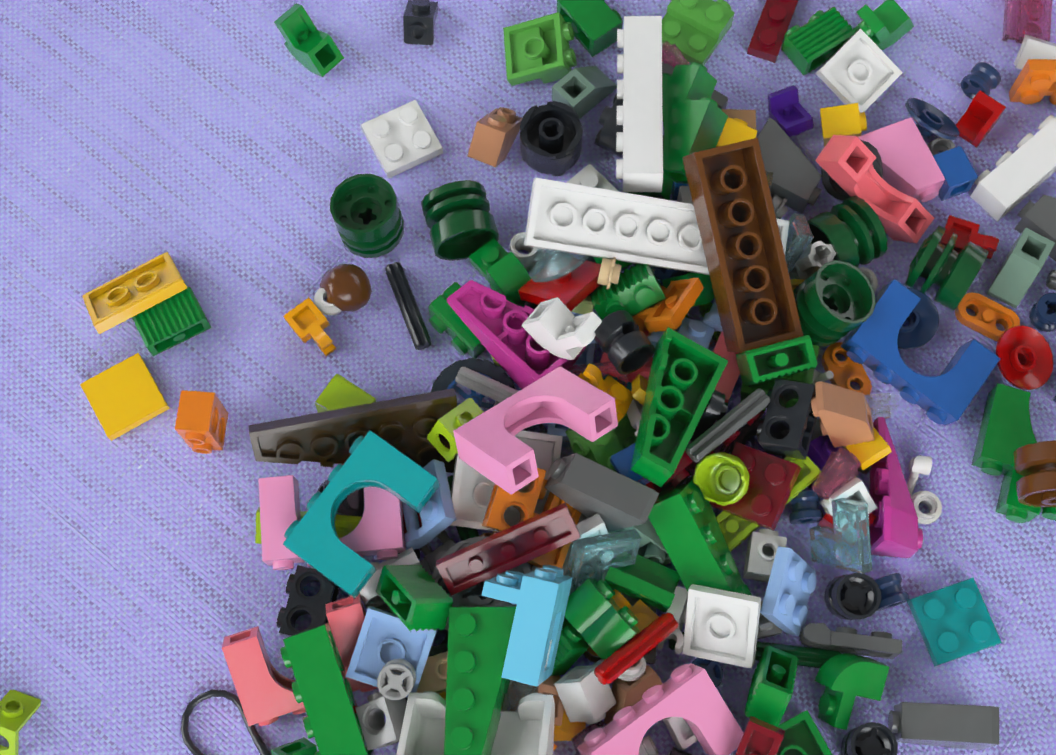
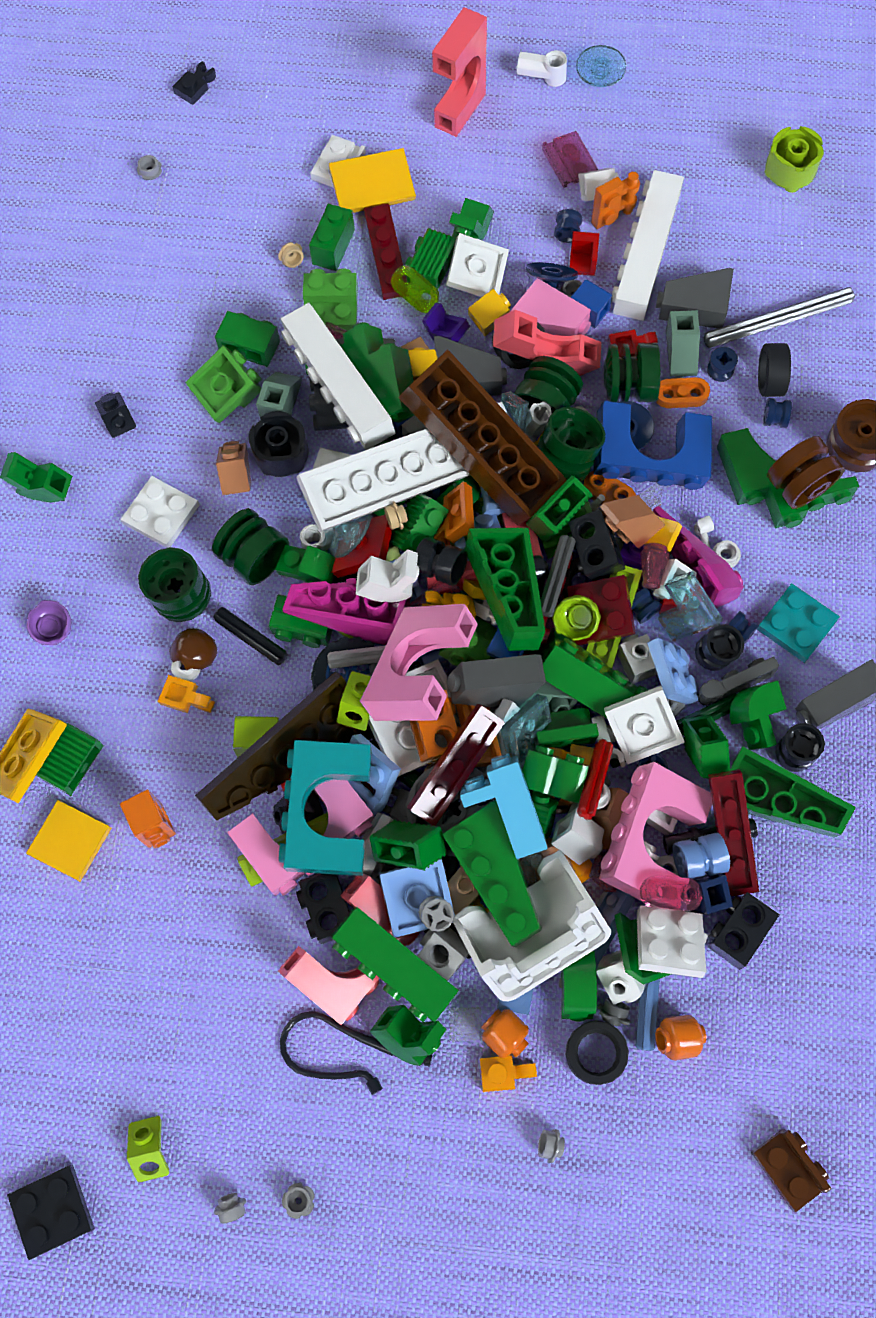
camera: 30 degrees left, 0 degrees up
(234, 184) = (49, 623): none -> medium lavender hair
(780, 61) = (413, 290): none -> clear neon green plate
(1024, 357) = (726, 405): red dish -> none

